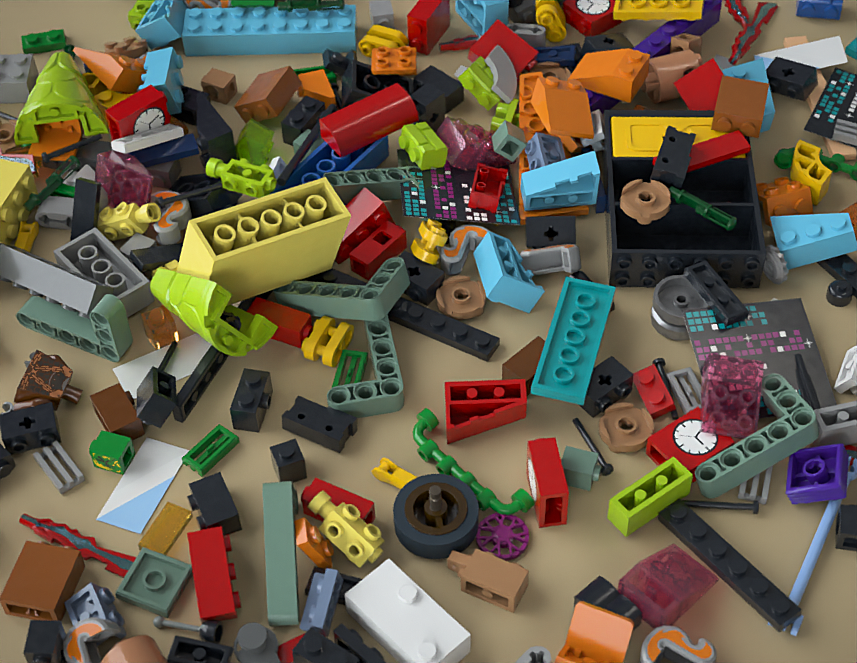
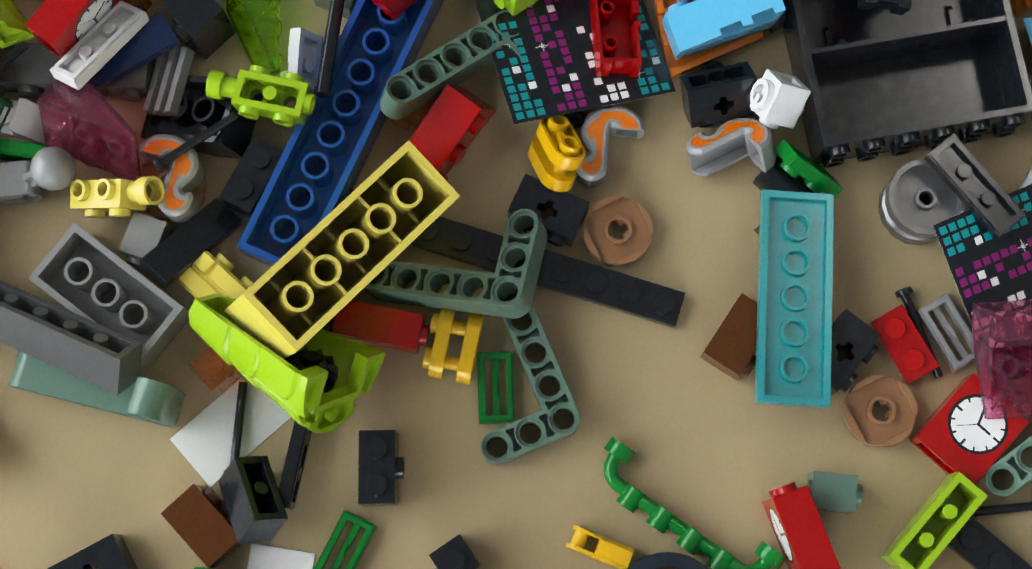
camera: 10 degrees left, 30 degrees up
(44, 382) = (89, 499): reddish brown torso -> none
(85, 206) = (50, 197): black tile -> none
(185, 174) = (163, 81): none -> light grey tile
(319, 423) = (478, 484): black piece -> none
(380, 246) = (485, 167): red brick -> none
(482, 406) = (688, 423): red wedge -> none
(504, 275) = (669, 186): medium azure wedge -> none
(588, 231) = (778, 99): none -> white brick
(594, 268) = (815, 176): none -> green plate
(606, 469) = (839, 445): black piece -> none
(645, 210) = (857, 67): medium nougat plate -> none
(706, 210) = (938, 44): dark green piece -> none

